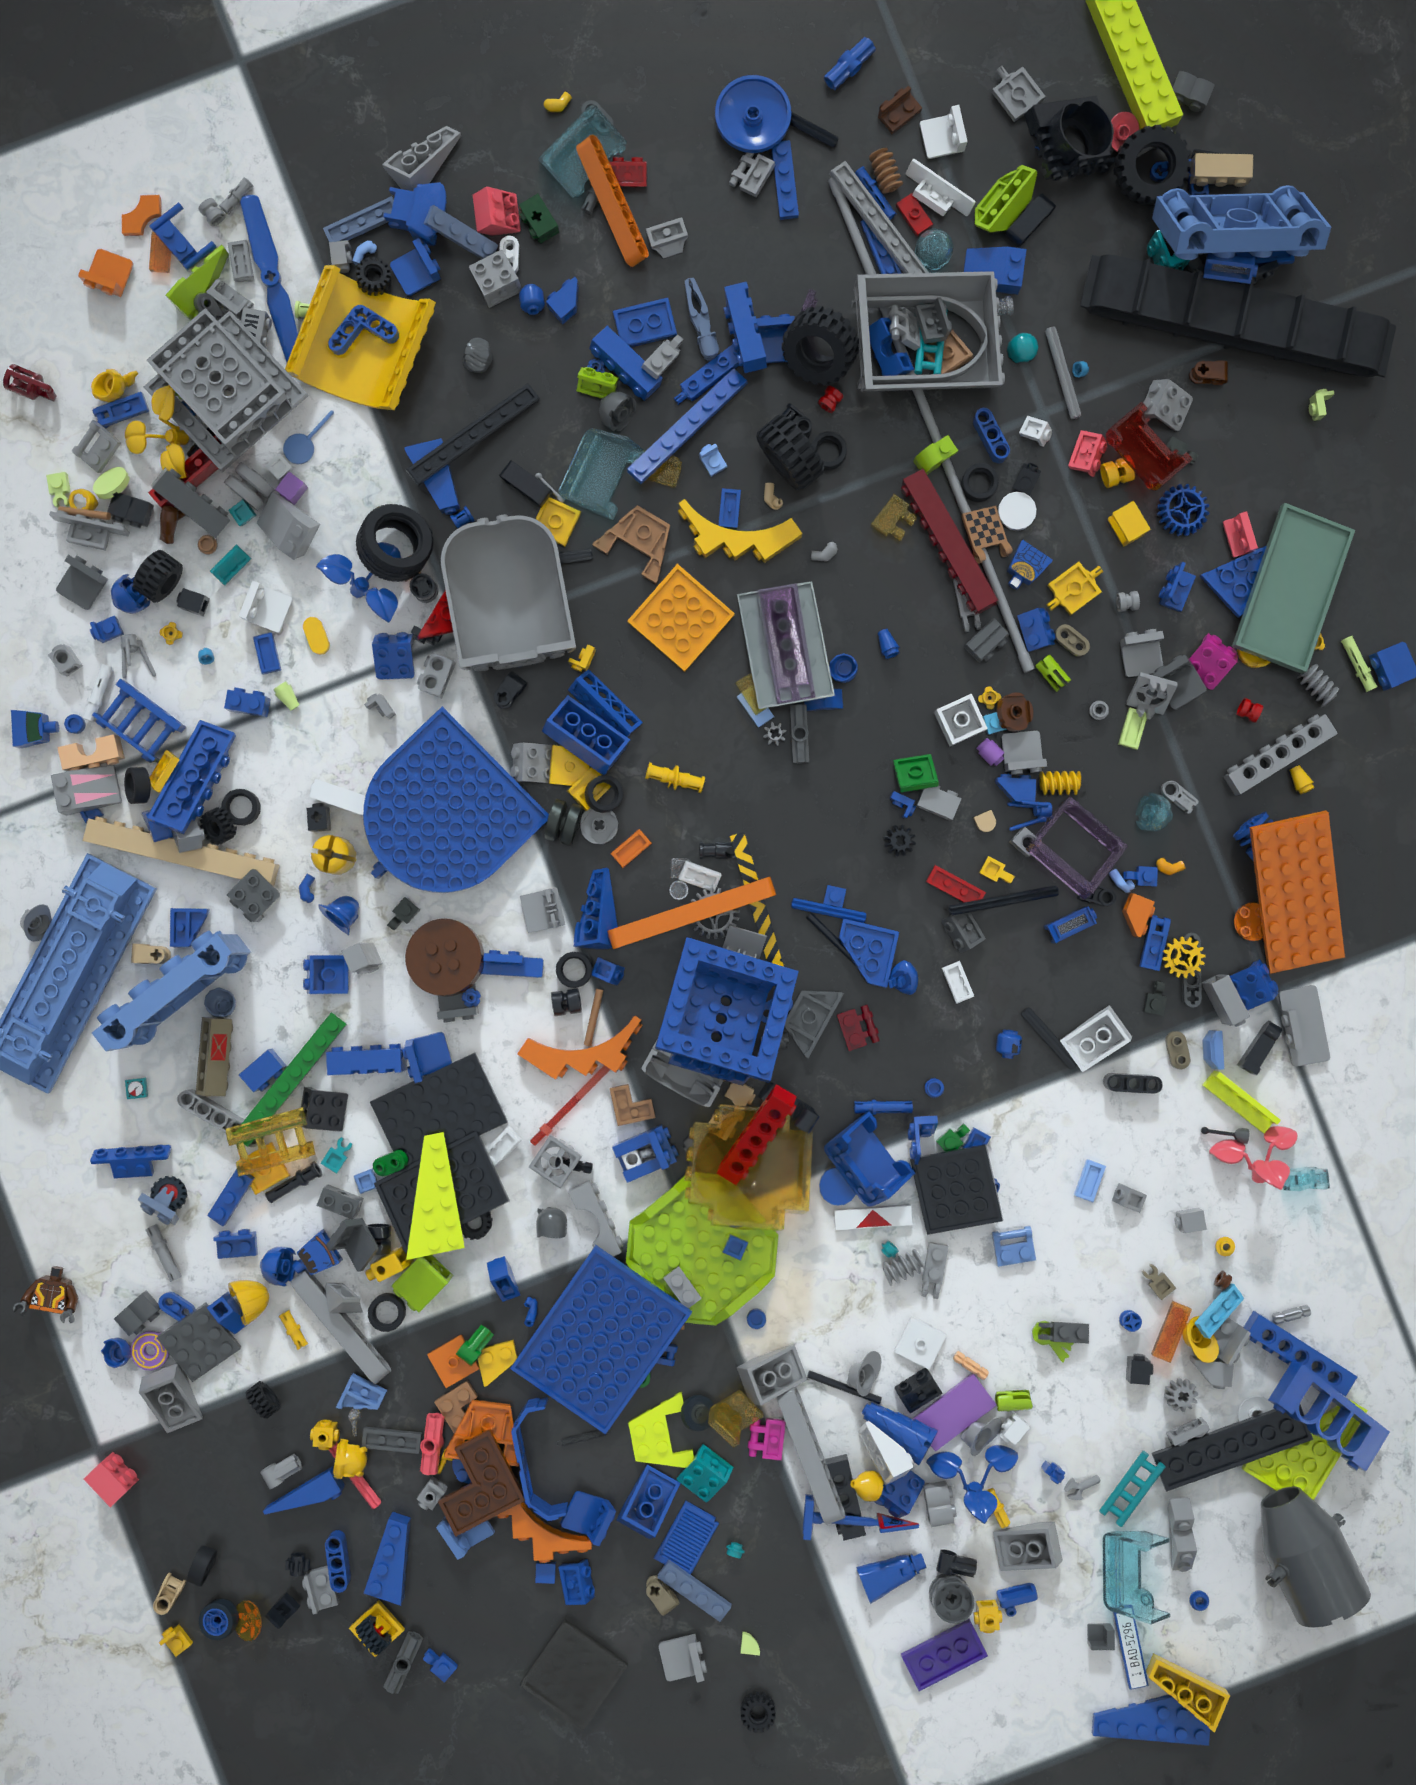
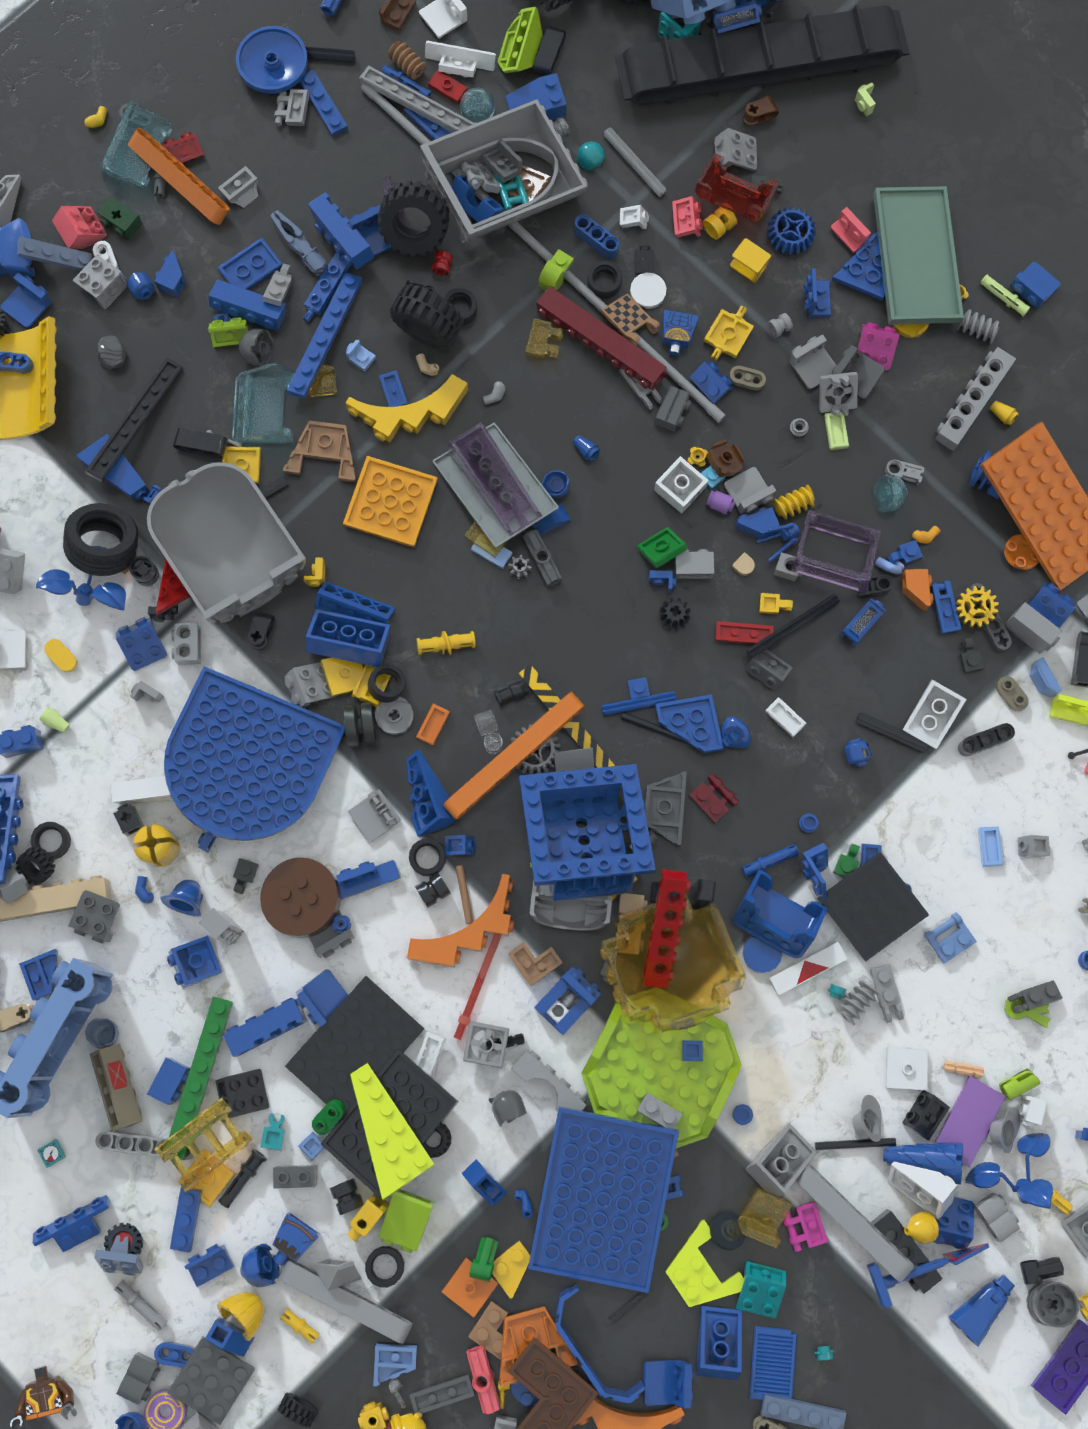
camera: 20 degrees left, 10 degrees down
(267, 653) = (20, 690): blue tile -> none
(356, 1240) = (326, 1206): dark grey bracket -> none
(699, 876) = (507, 721): white plate -> none
(1049, 668) = (740, 405): lime arm -> none
(1077, 366) = (646, 150): dark azure hinge -> none
(1249, 710) = (930, 372): red wheel -> none

